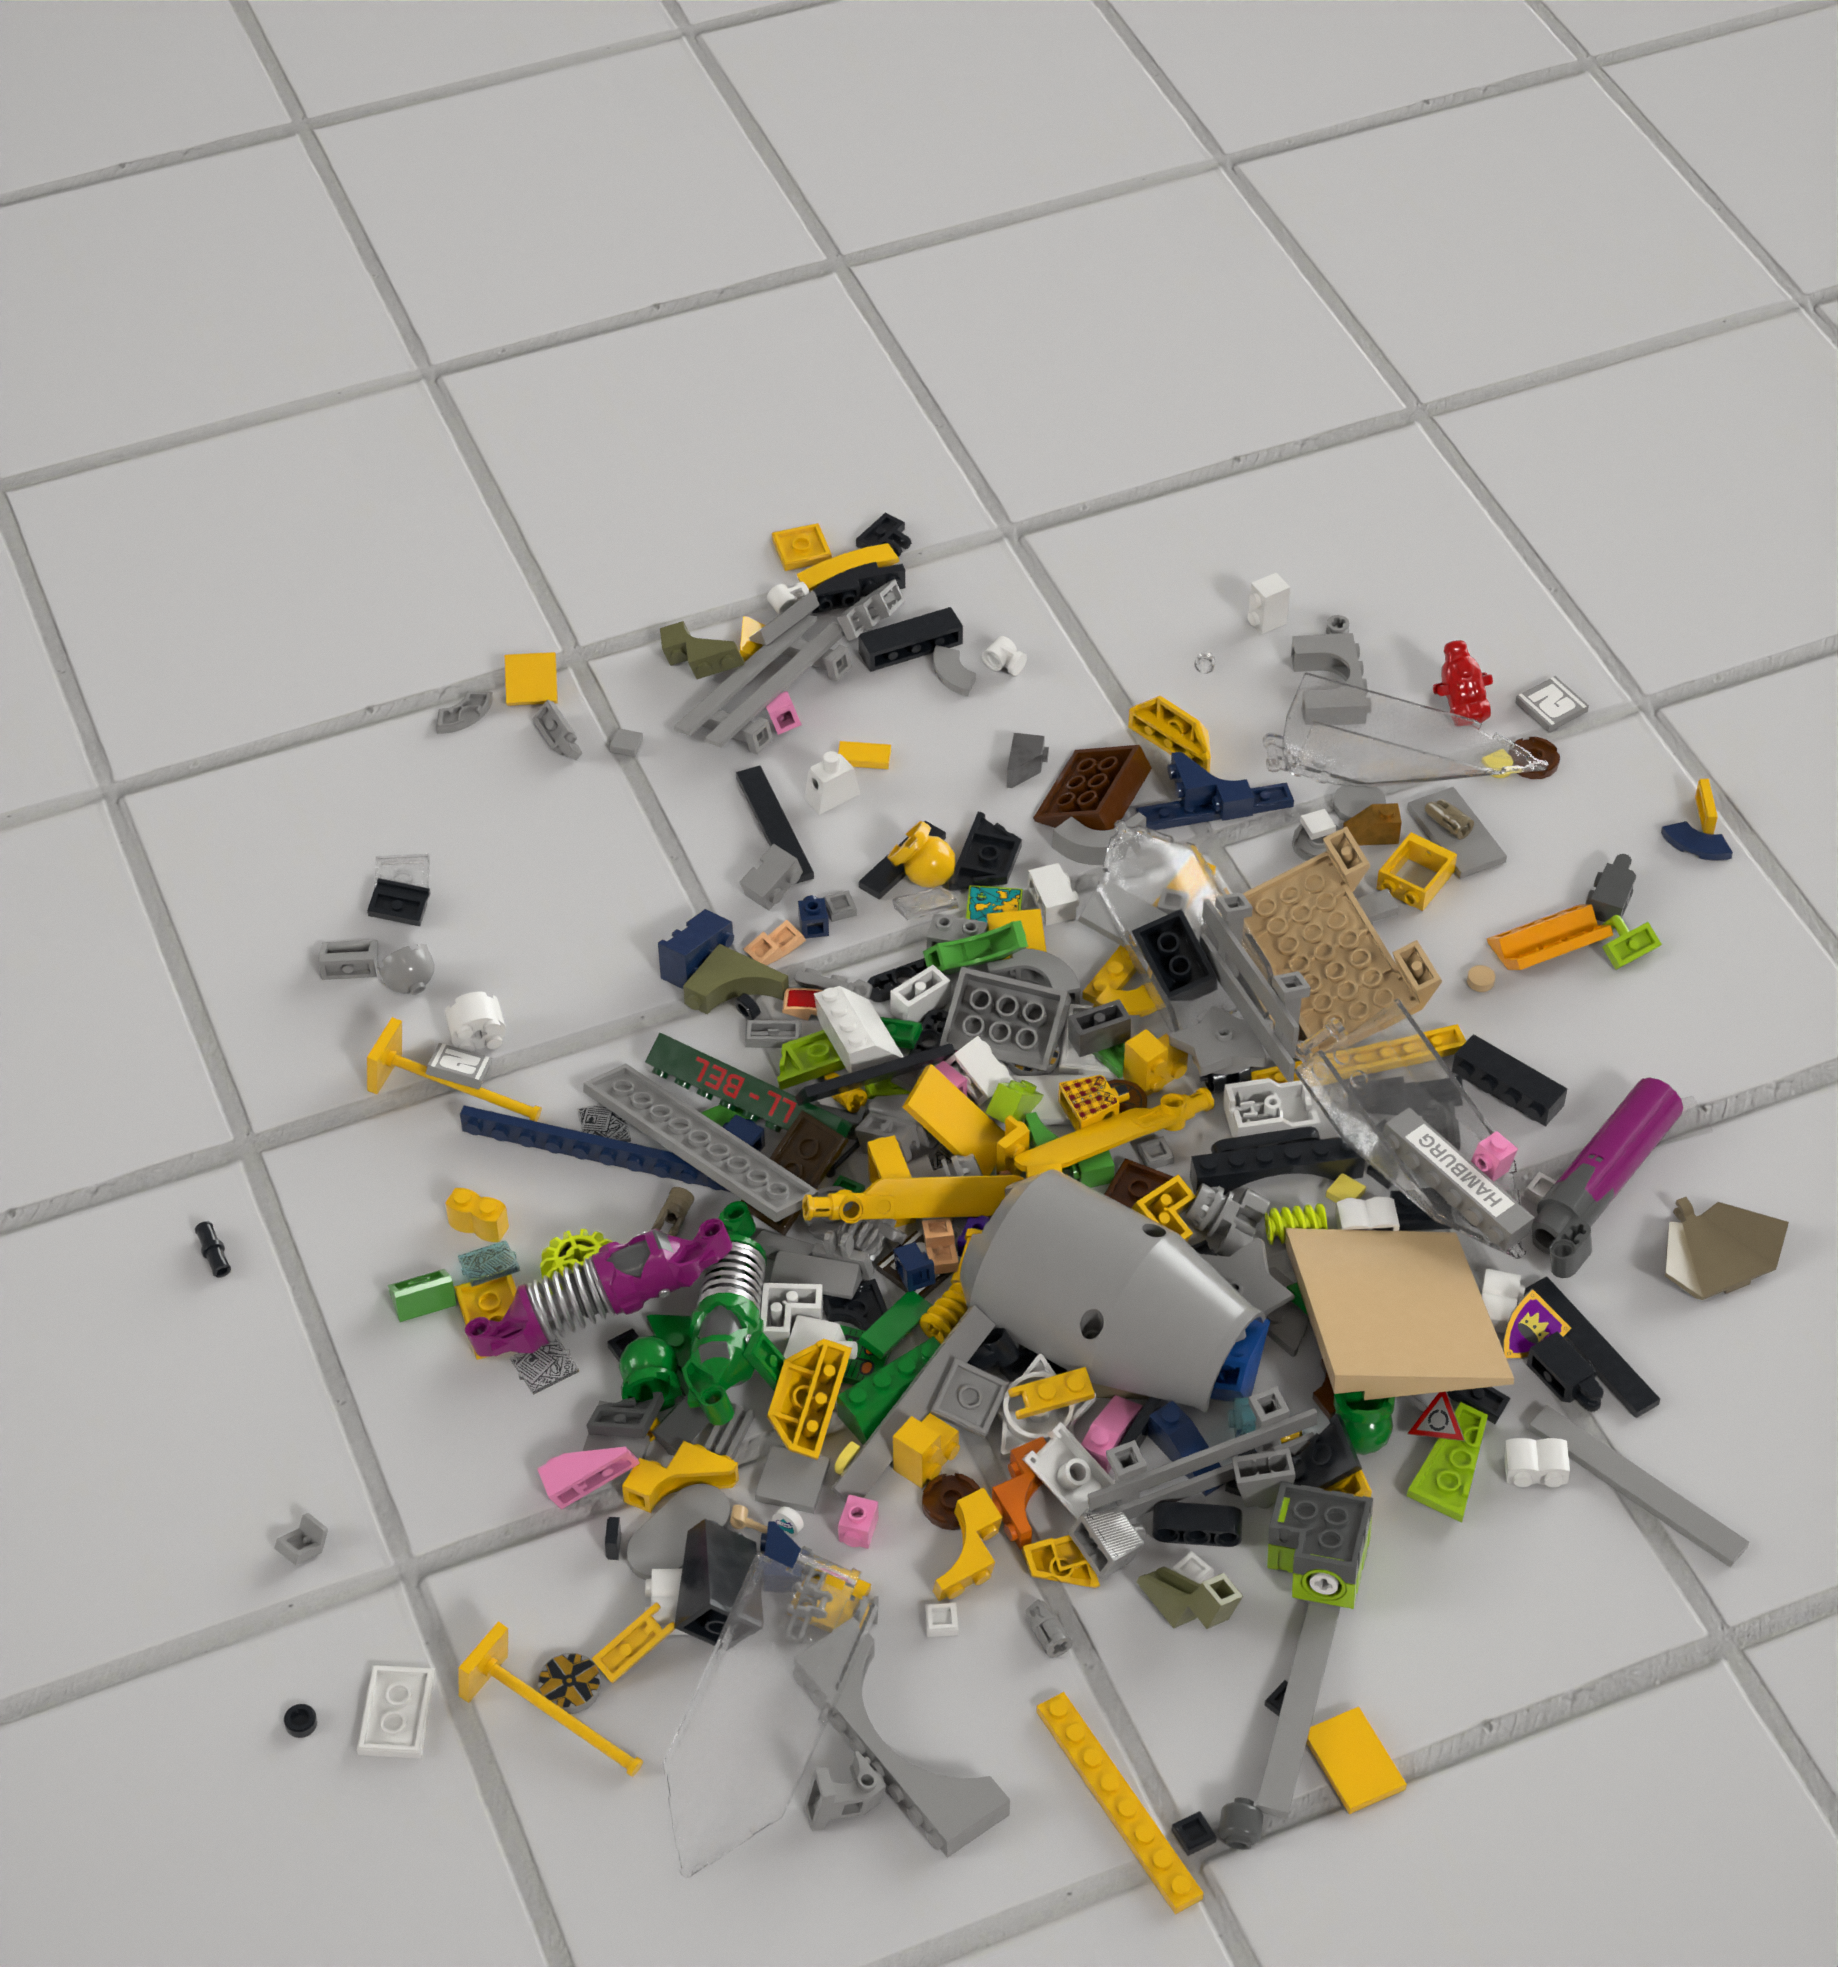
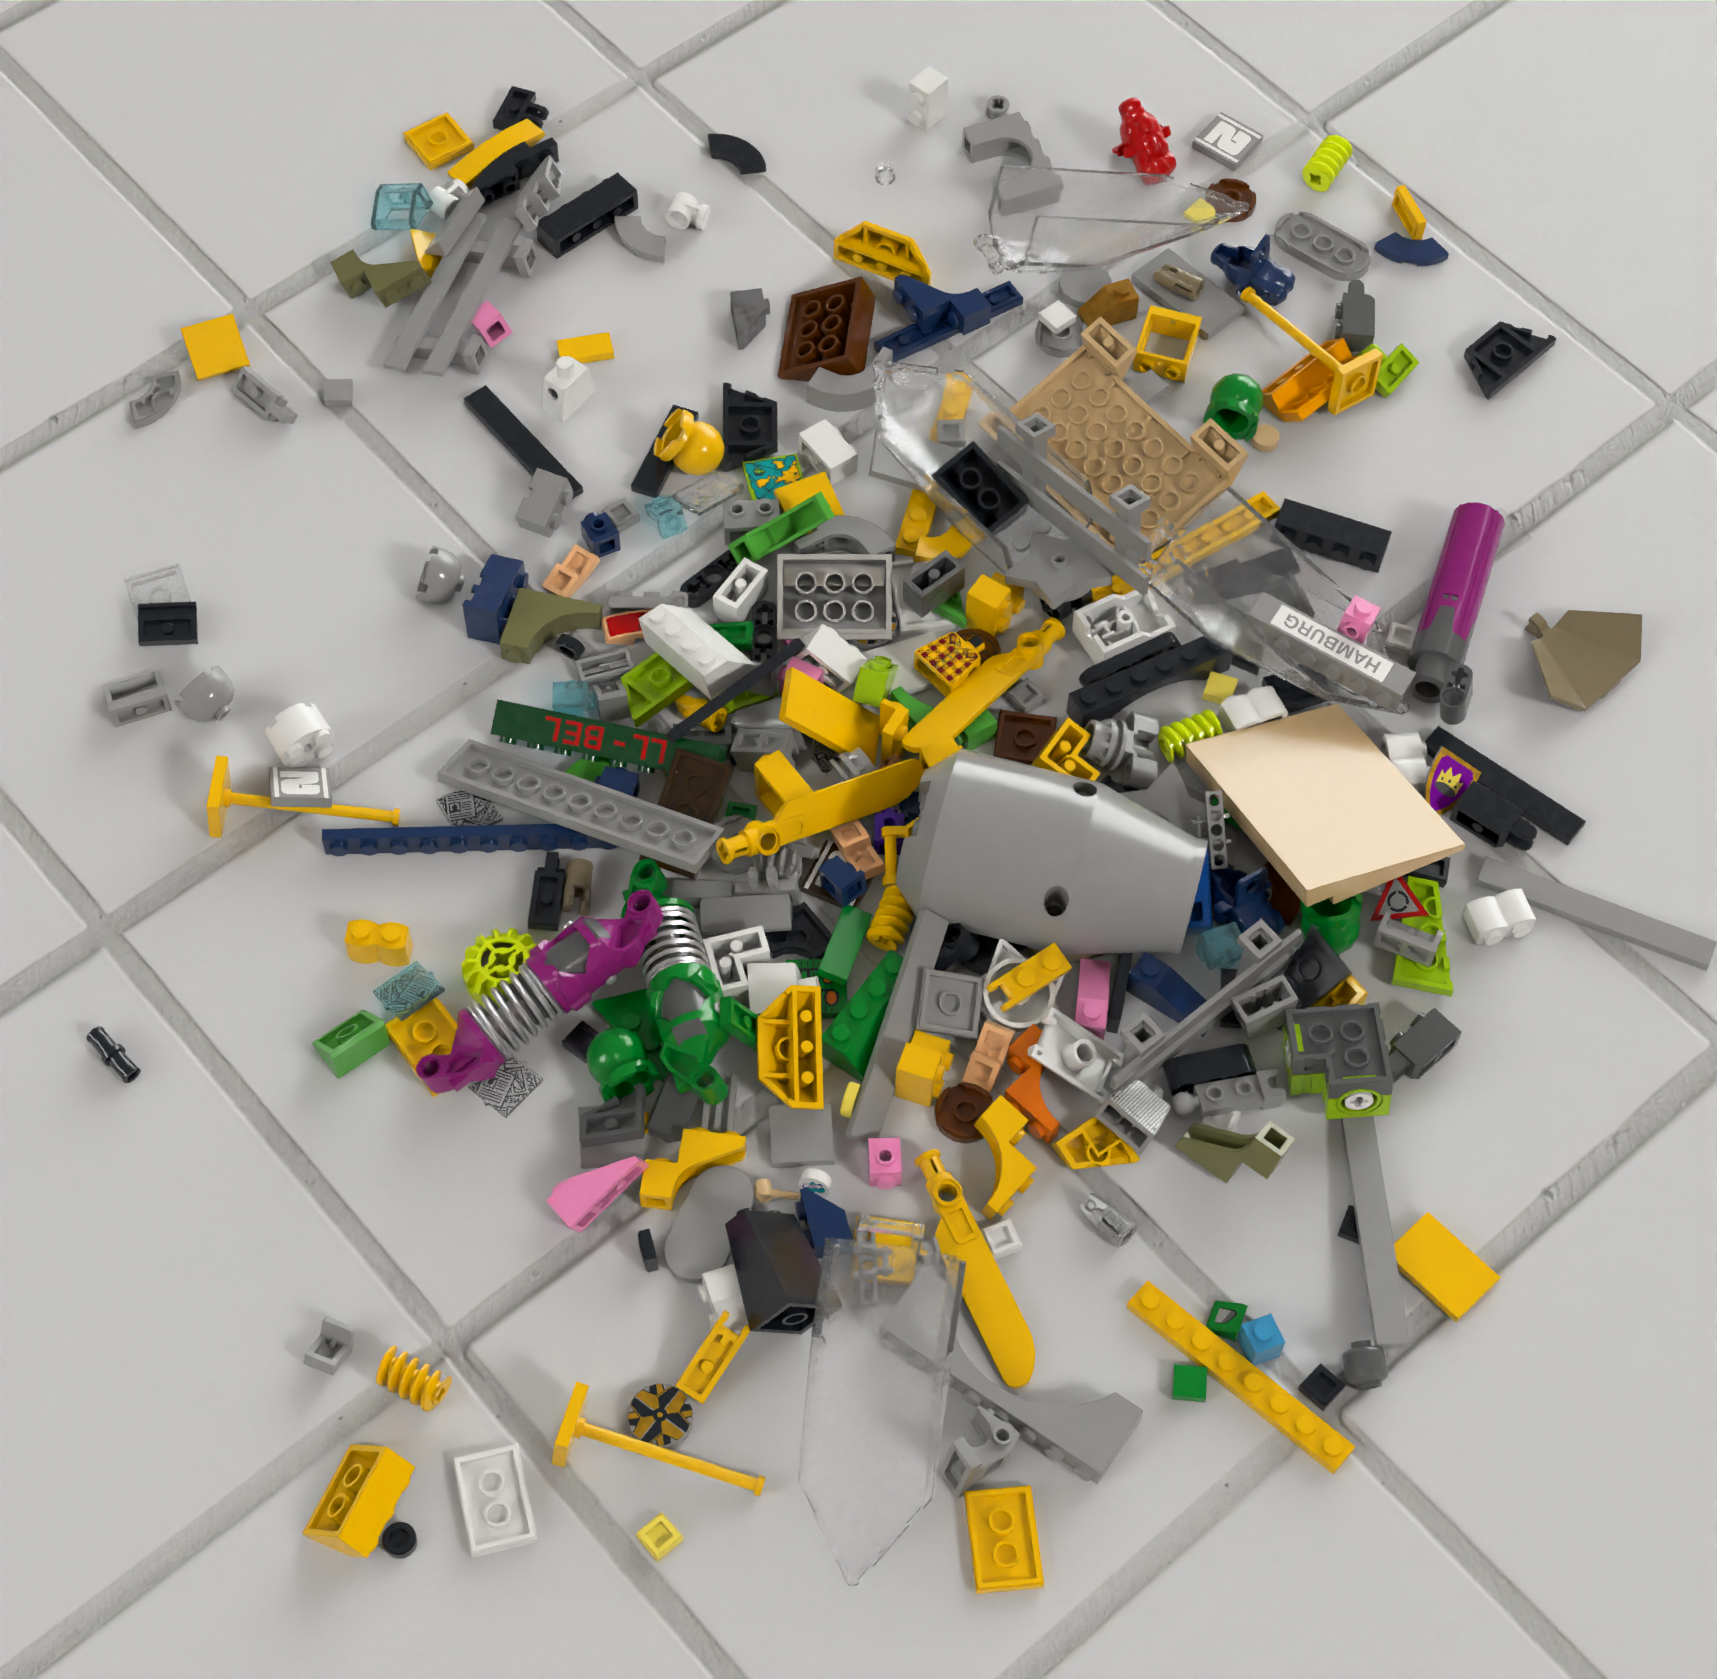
camera: 20 degrees left, 10 degrees up
(279, 1676) = (359, 1500): none -> yellow slope
(362, 1587) = (411, 1381): none -> yellow piece
(528, 1784) = (659, 1537): none -> light yellow tile
(643, 1210) = (547, 895): none -> black hinge
(653, 918) = (440, 577): none -> light grey cylinder
(732, 1050) = (573, 698): none -> clear light blue brick
(741, 586) = (400, 197): none -> clear light blue tile
(765, 1062) = (611, 700): none -> light grey slope
(839, 1878) = (1003, 1539): none -> yellow tile
(881, 915) = (667, 515): none -> clear light blue bracket
(906, 1644) = (983, 1285): none -> yellow piece
(993, 1456) = (988, 1055): none -> light nougat slope
(1068, 1793) = (1189, 1383): none -> green tile
(1073, 613) = (736, 151): none -> black tile
(1126, 1748) = (1226, 1319): none -> green slope
(1149, 1772) = (1261, 1340): none -> dark azure brick
(1210, 1551) = (1231, 1095): none -> light grey plate
(1275, 1298) = (1212, 839): none -> light grey piece
(1291, 1374) = (1243, 898): none -> dark blue piece
(1409, 1558) = (1422, 1045): none -> dark grey hinge
(1432, 1457) = (1406, 940): none -> light grey hinge
(1456, 942) = (1236, 405): none -> green tile
(1528, 825) = (1255, 269): none -> dark blue piece
(1579, 943) = (1351, 381): none -> yellow tile
(1609, 819) = (1322, 246): none -> light grey tile
(1641, 743) = (1327, 162): none -> neon yellow piece
(1751, 957) = (1503, 355): none -> black wing

